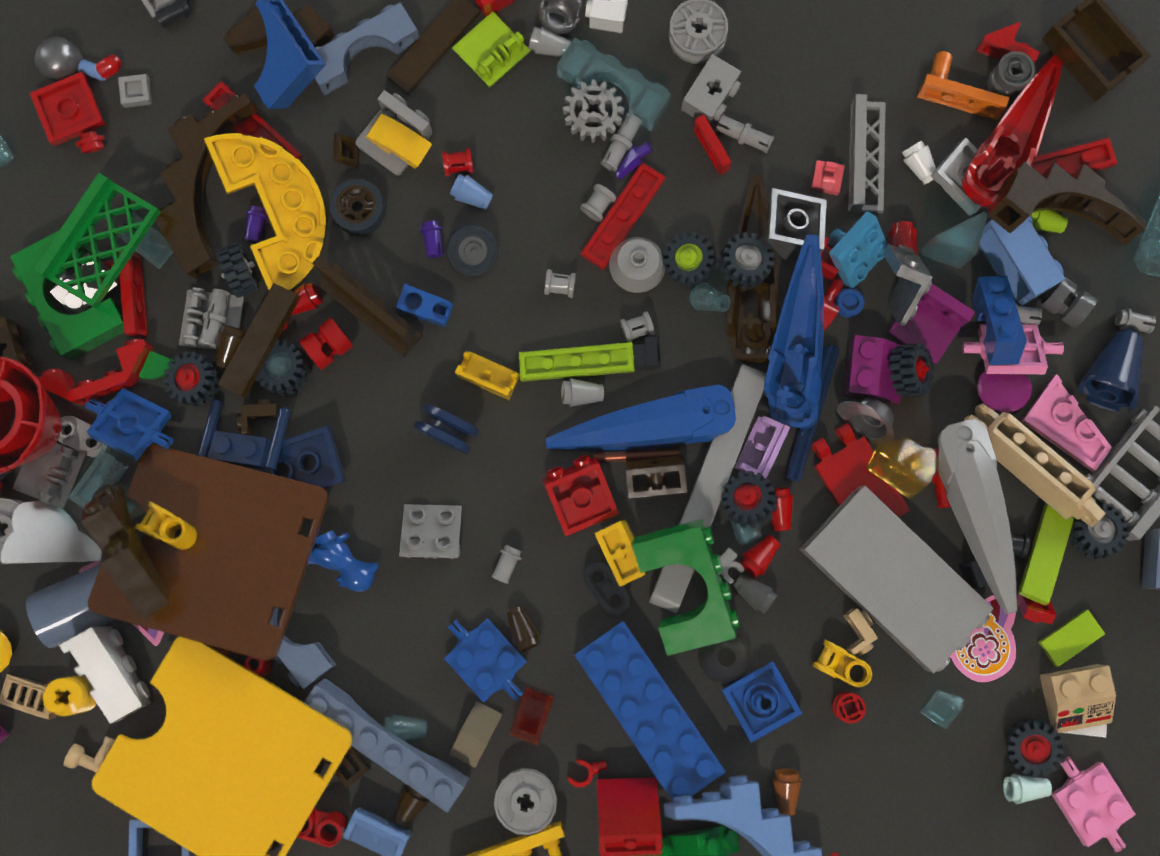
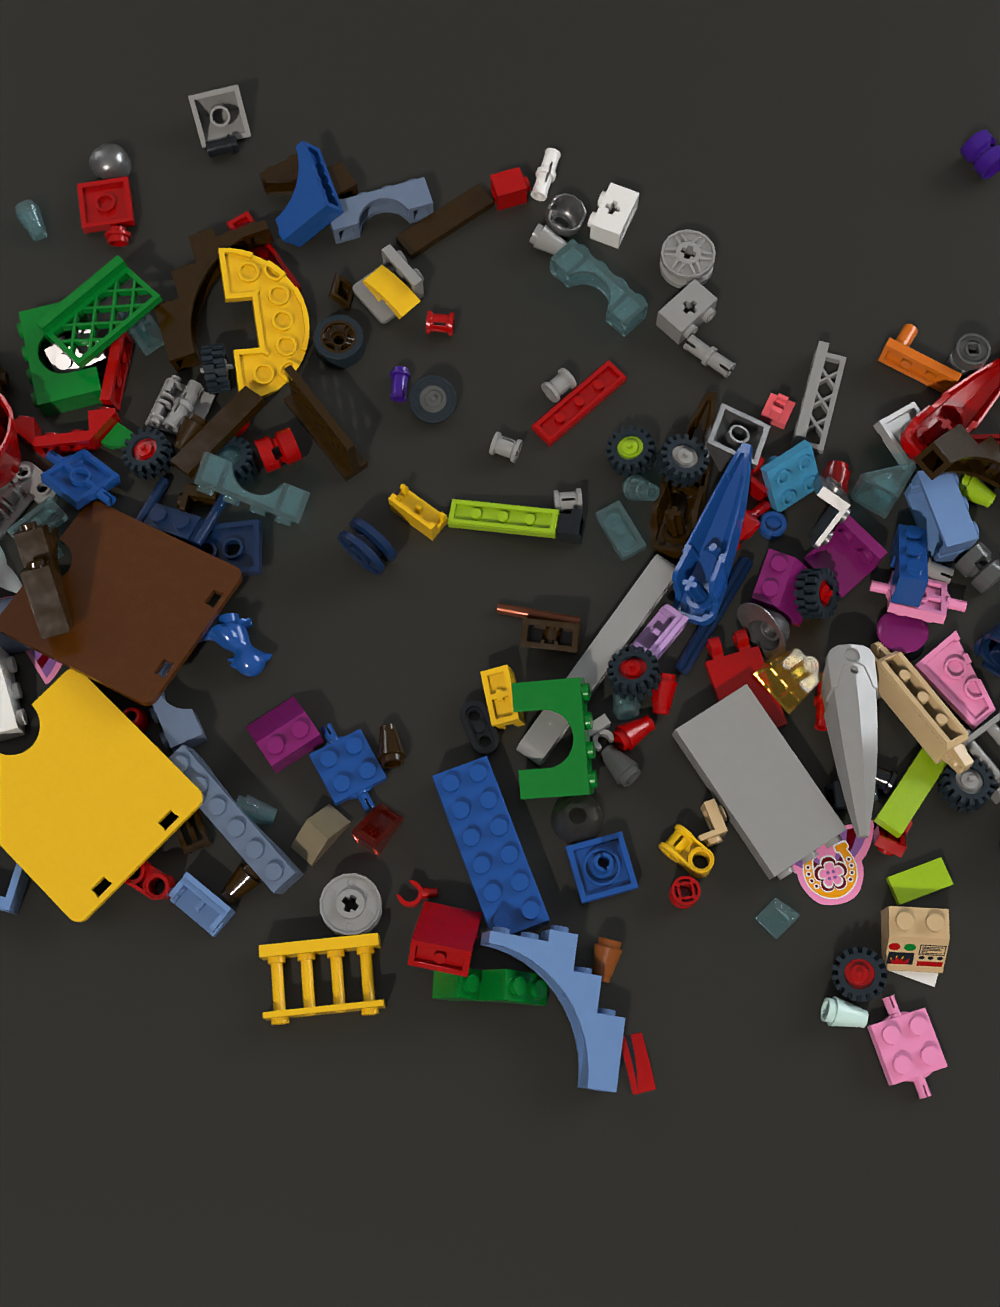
camera: 15 degrees right, 10 degrees down
(103, 69) = (146, 179): arm -> none
(135, 90) = (169, 203): light grey tile -> none
(163, 525) = (88, 570): yellow piece -> none
(254, 224) = (245, 331): dark purple pin -> none
(309, 298) = (272, 410): red cone -> none
(347, 400) = (217, 476): none -> clear light blue arch
(411, 642) = (285, 734): none -> magenta slope
(424, 306) = (375, 438): blue leg -> none
(431, 531) = (328, 639): light grey hinge -> none
(470, 192) = (445, 351): medium blue cone -> none
(491, 49) = (496, 236): lime hinge -> none
(506, 564) = (391, 683): light grey pin -> none
(580, 495) = (476, 636): red plate -> none
(581, 392) = (500, 546): light grey cone -> none
(593, 98) = (574, 307): light grey gear -> none
(621, 142) = (593, 338): light grey pin -> none
(633, 159) = (600, 355): dark purple bar -> none
(637, 265) = (581, 446): light grey cone -> none
(662, 423) = (565, 589): blue piece -> none
(698, 346) = (620, 530): none -> clear light blue plate
(711, 145) = (676, 358): red tile -> none
(920, 161) = (867, 413): white cone -> none
(1002, 42) = (968, 323): red slope -> none

